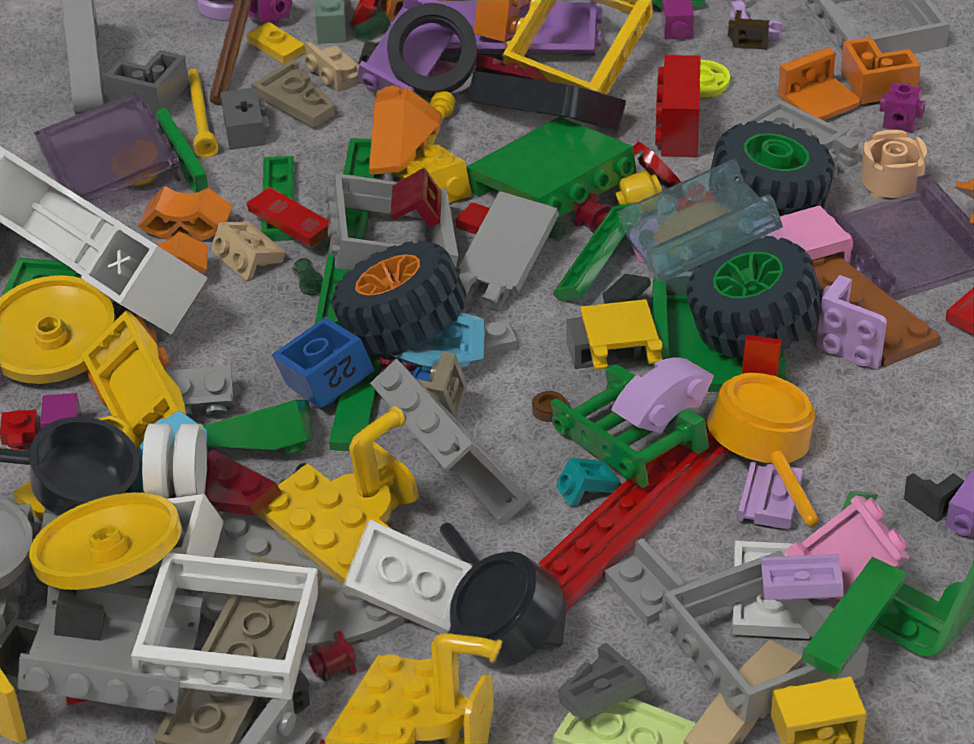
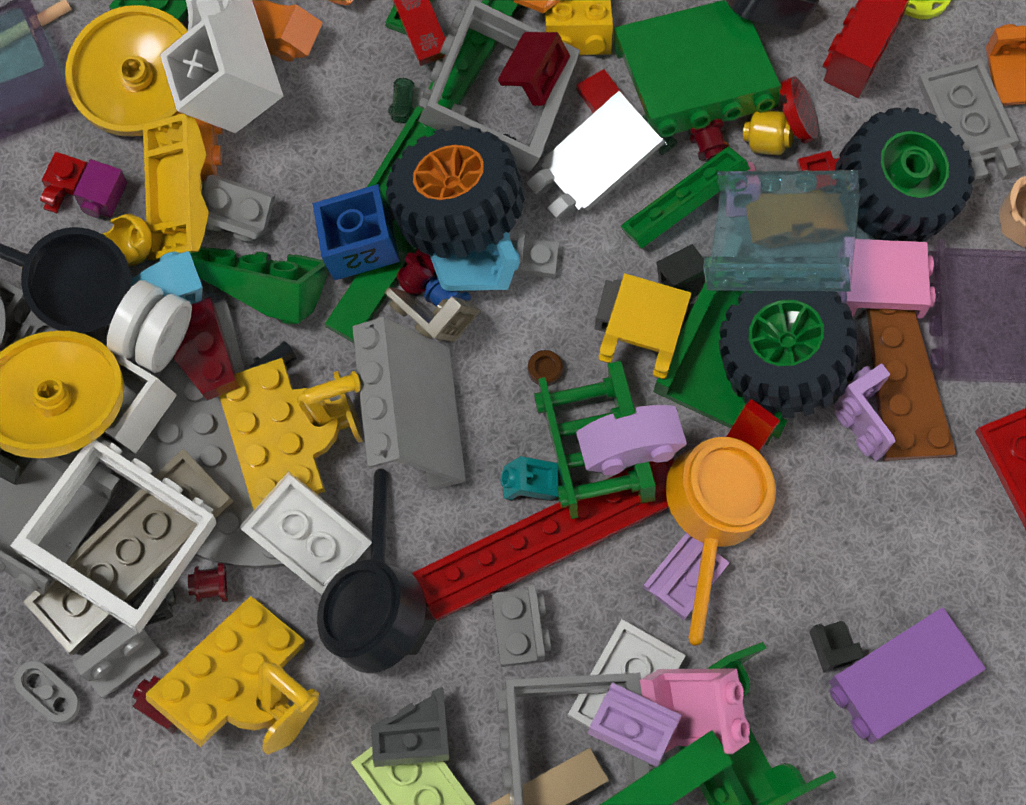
camera: 20 degrees right, 30 degrees up
(244, 248) = (363, 35): tan bracket -> none

